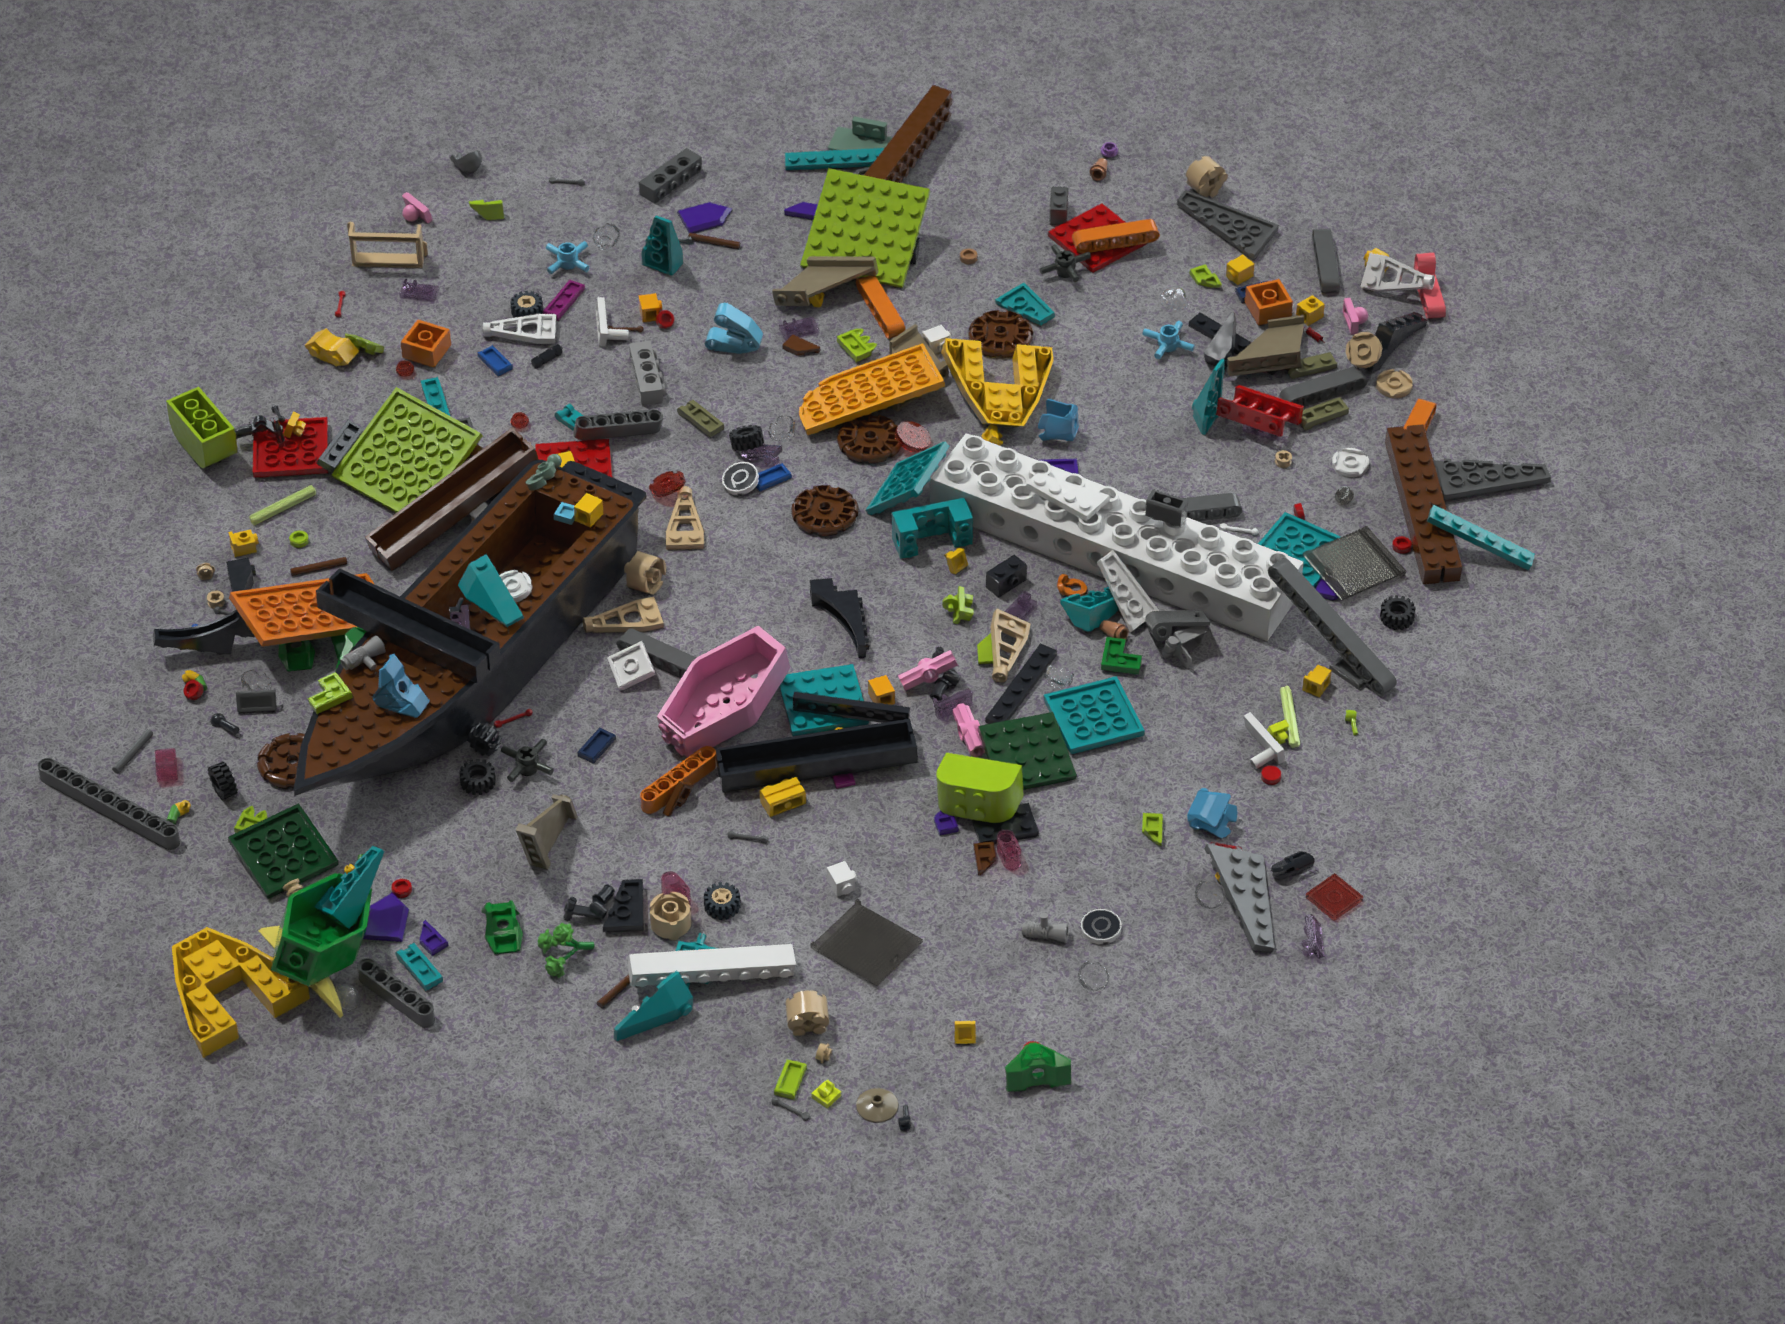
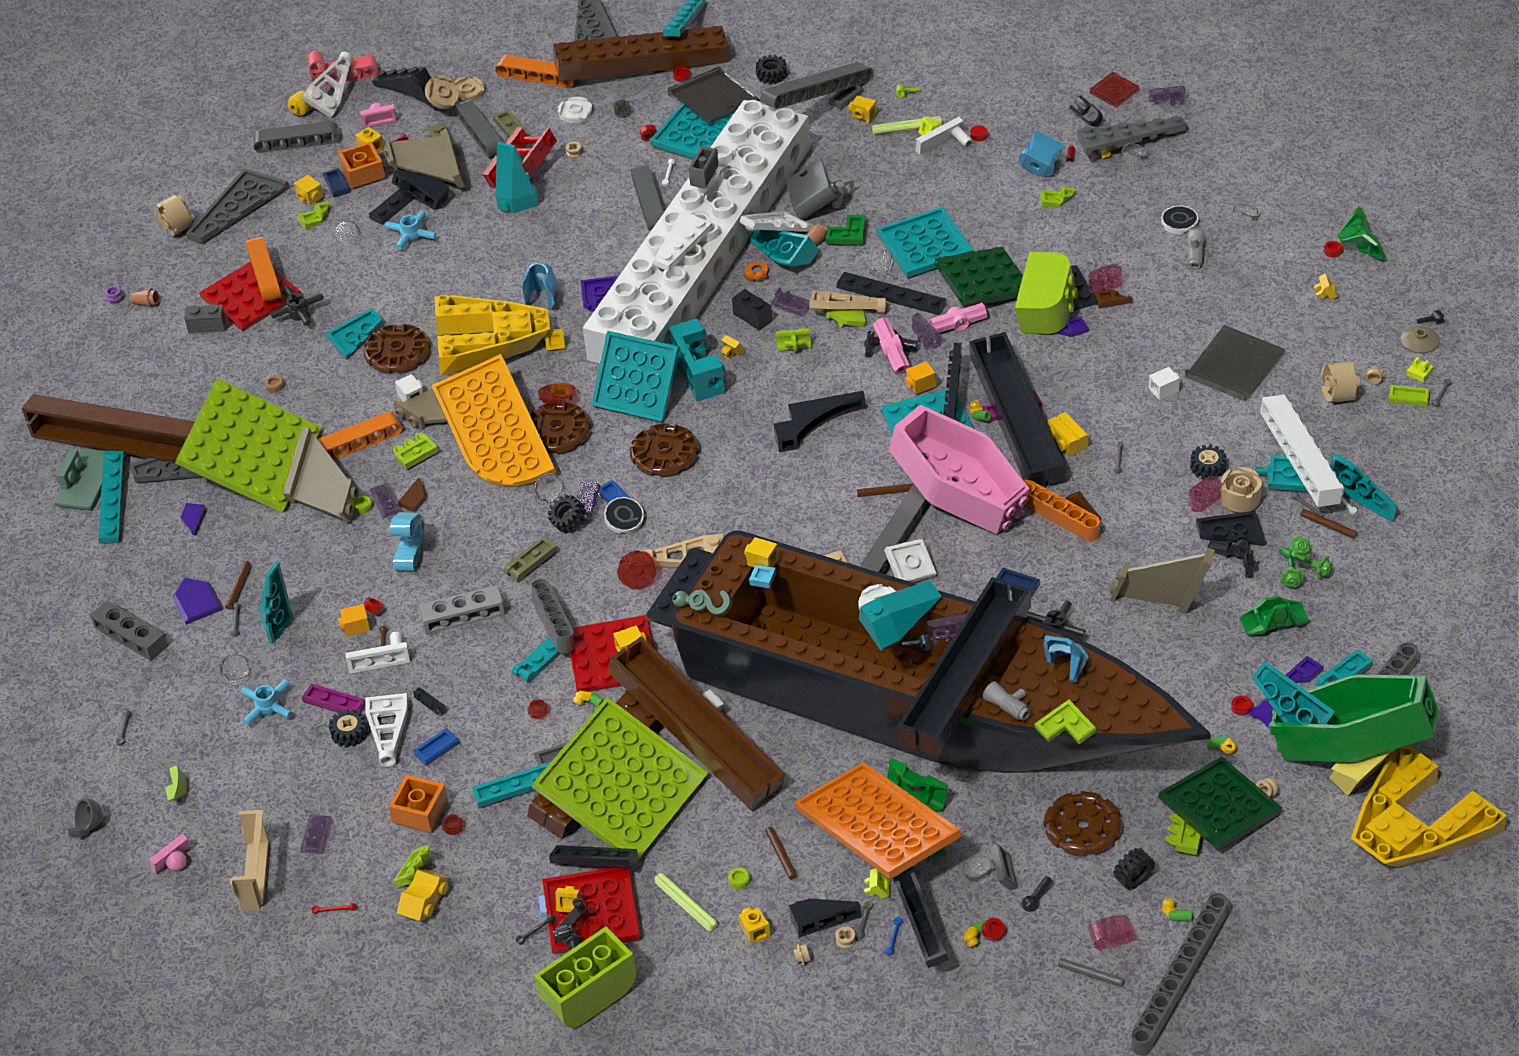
camera: 90 degrees left, 0 degrees up
(797, 312) = (362, 504): none -> lime tile

